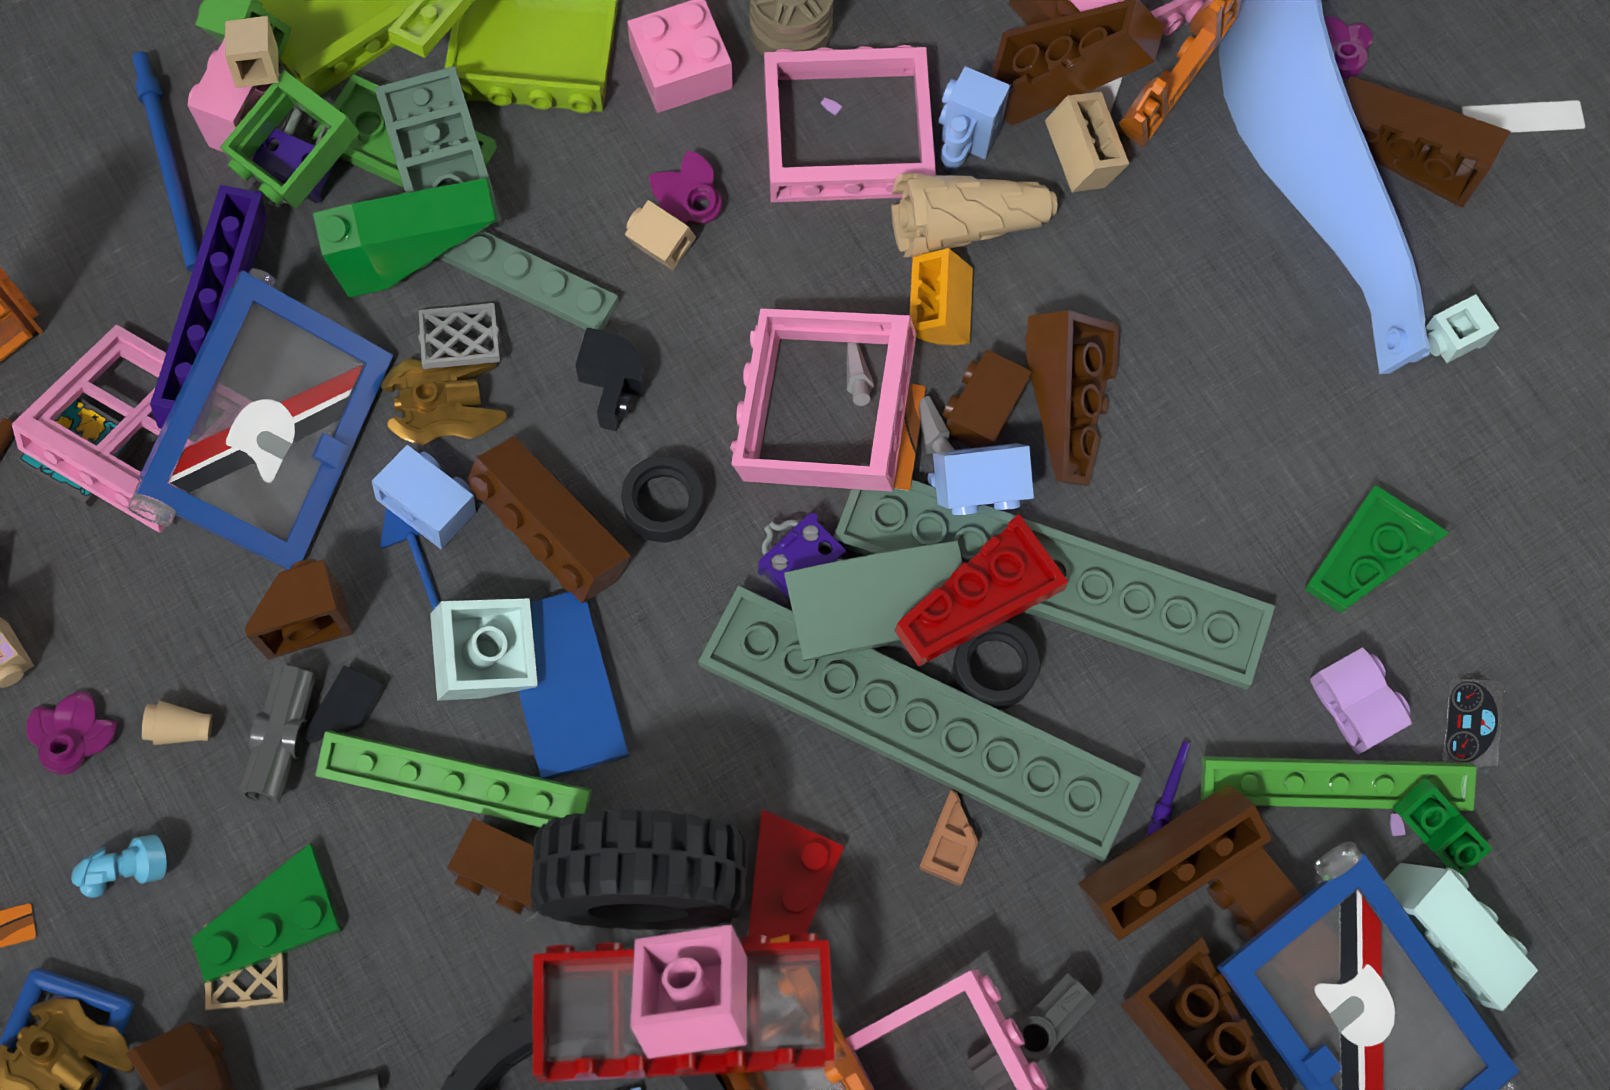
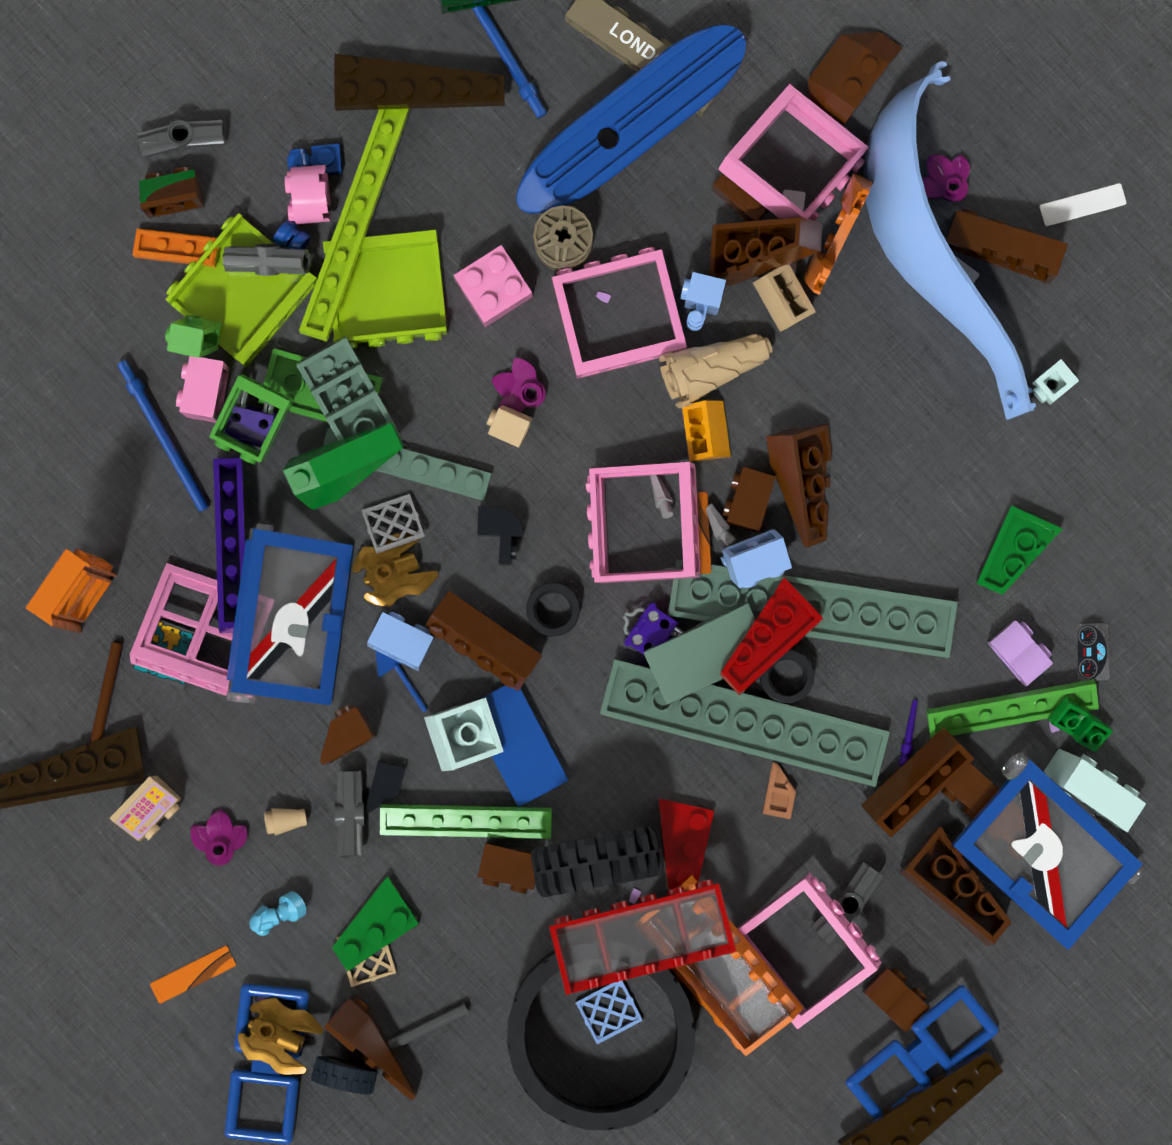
camera: 10 degrees left, 15 degrees up
(251, 51) = (215, 370): tan brick -> none
(689, 992) = (646, 932): bright pink brick -> none

